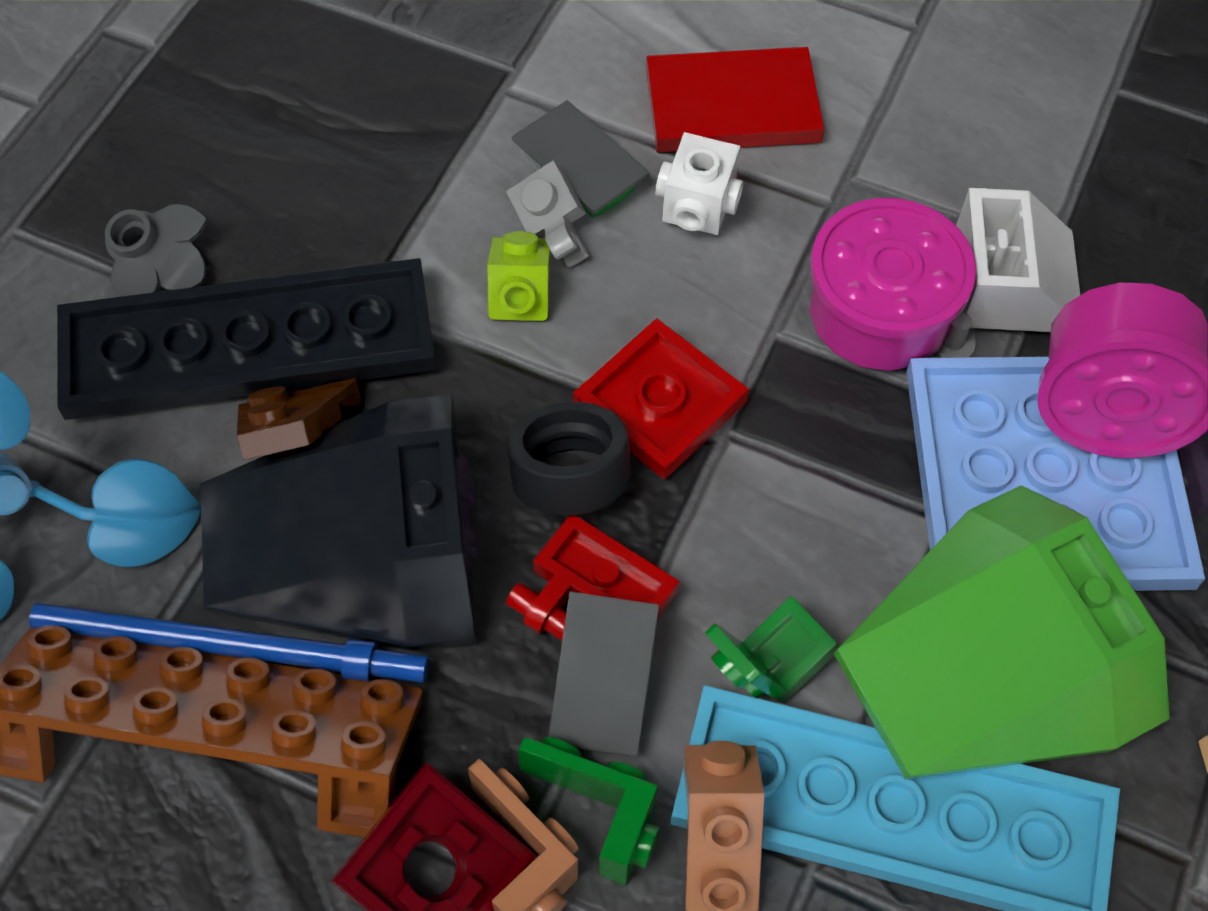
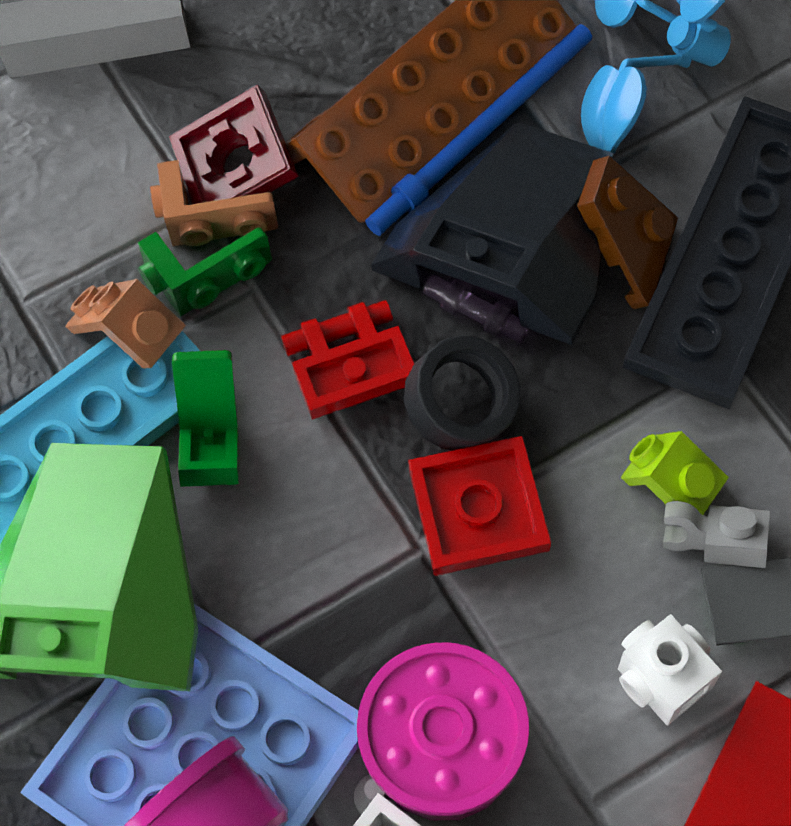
camera: 130 degrees right, 5 degrees up
(603, 673) = (279, 314): dark grey piece -> none

